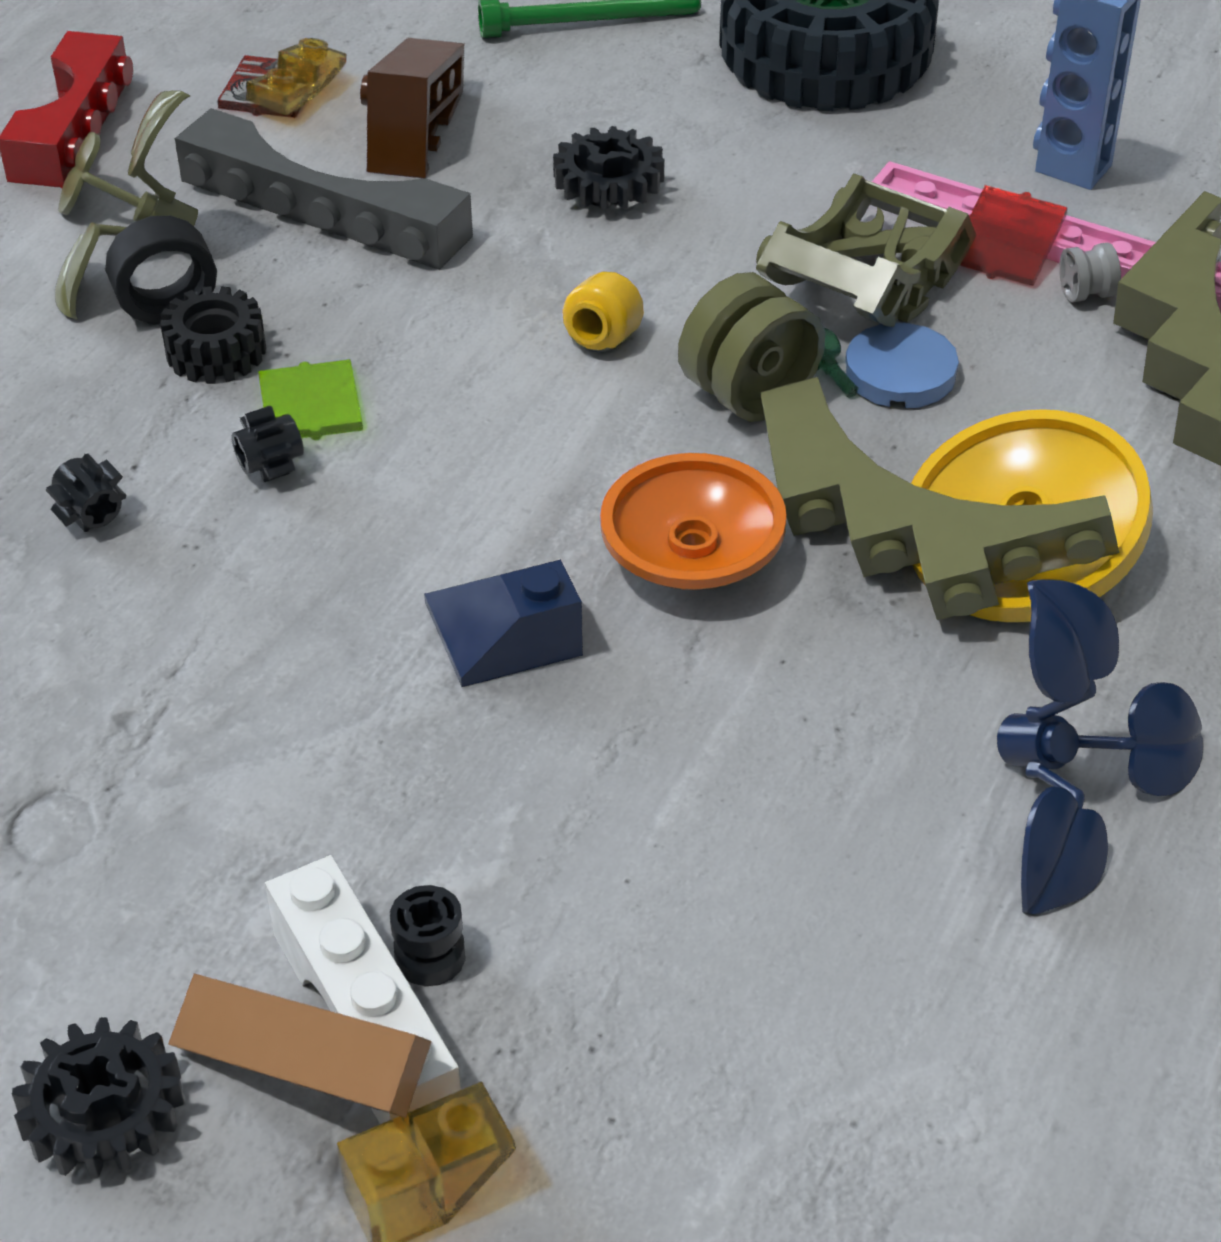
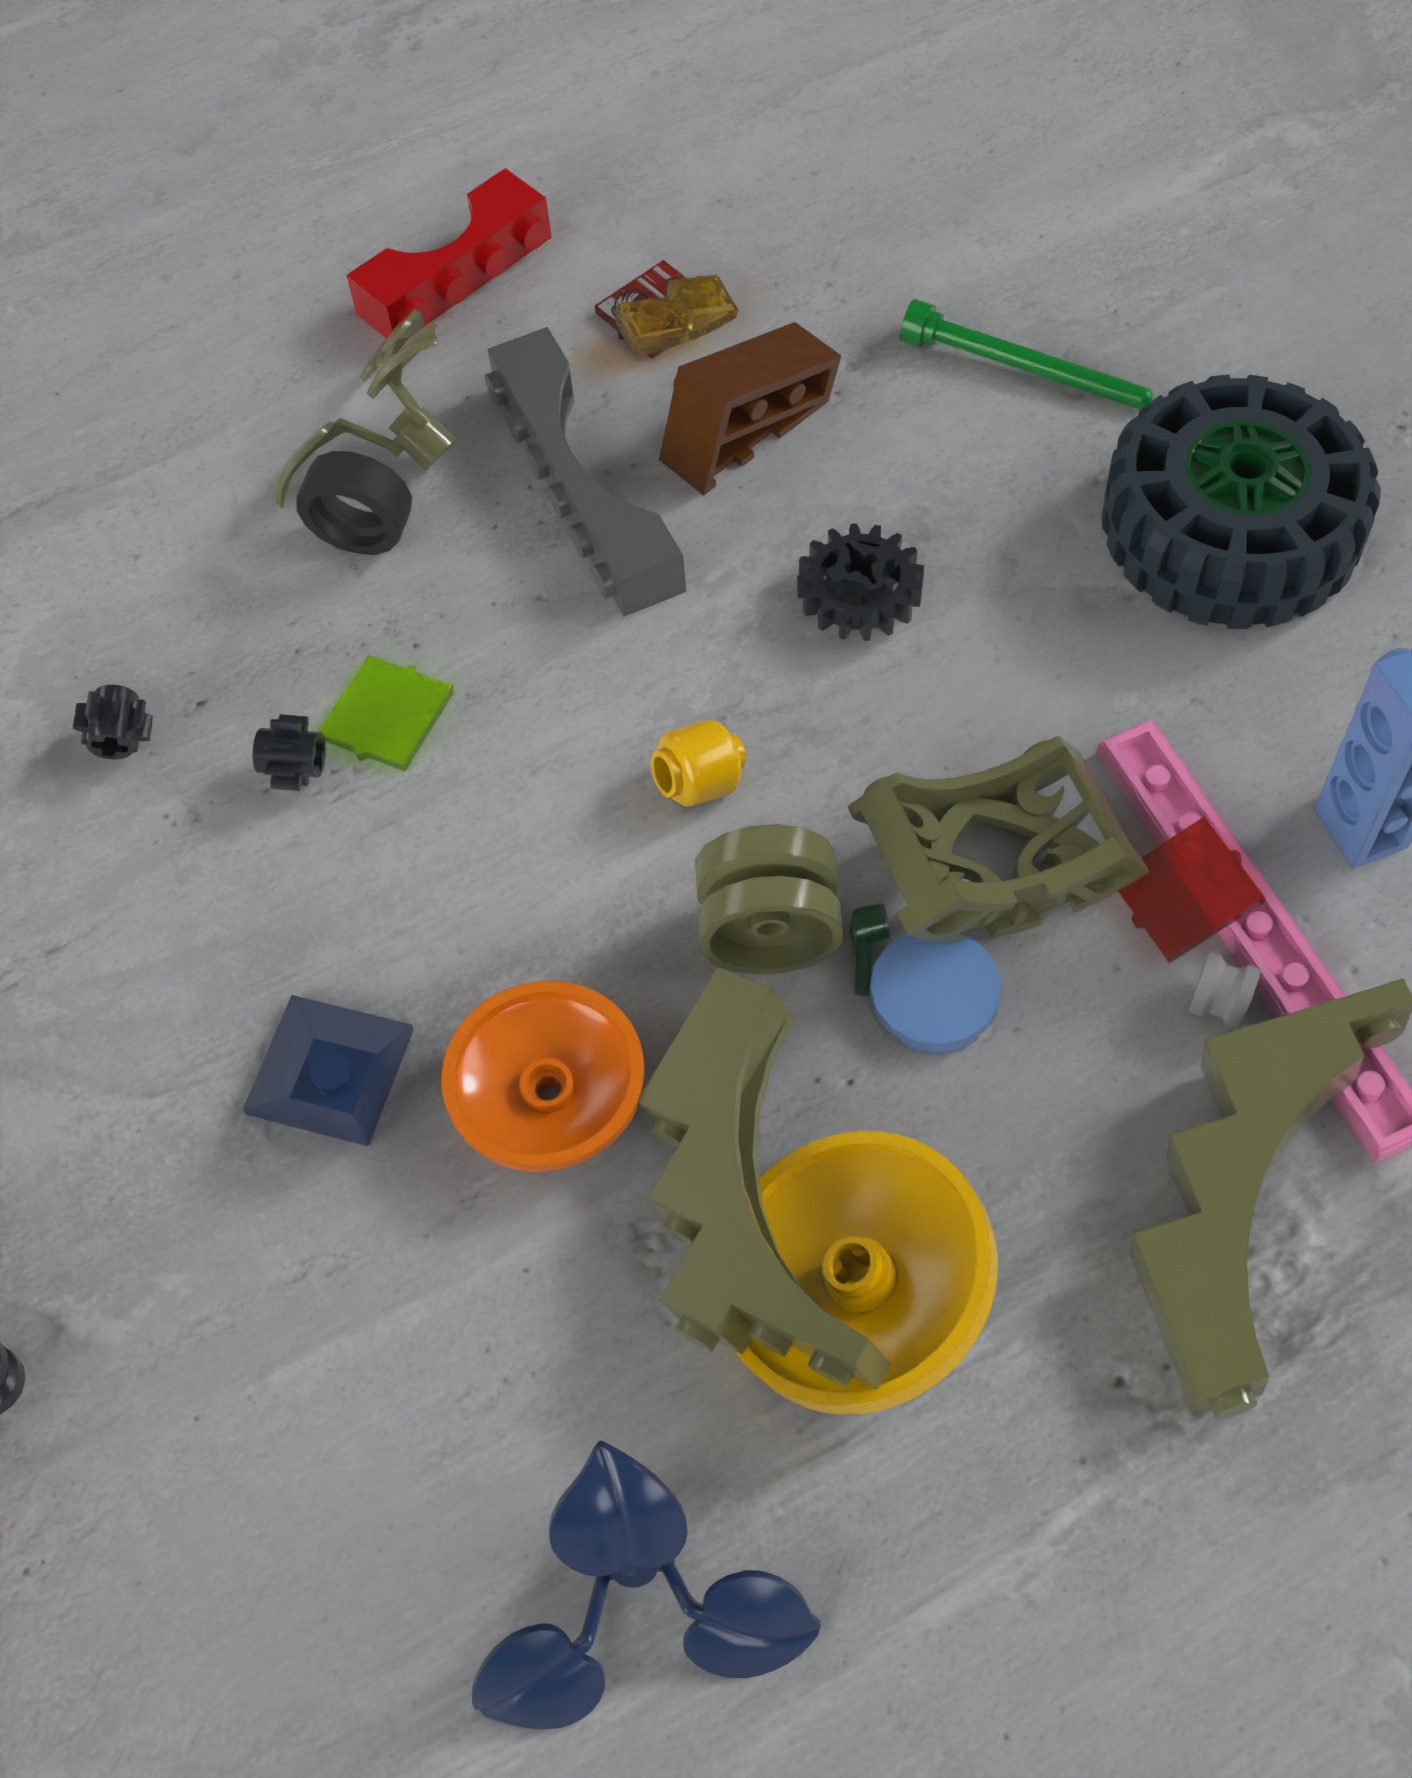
camera: 40 degrees right, 15 degrees up
(213, 334) = (351, 570): black tyre -> none

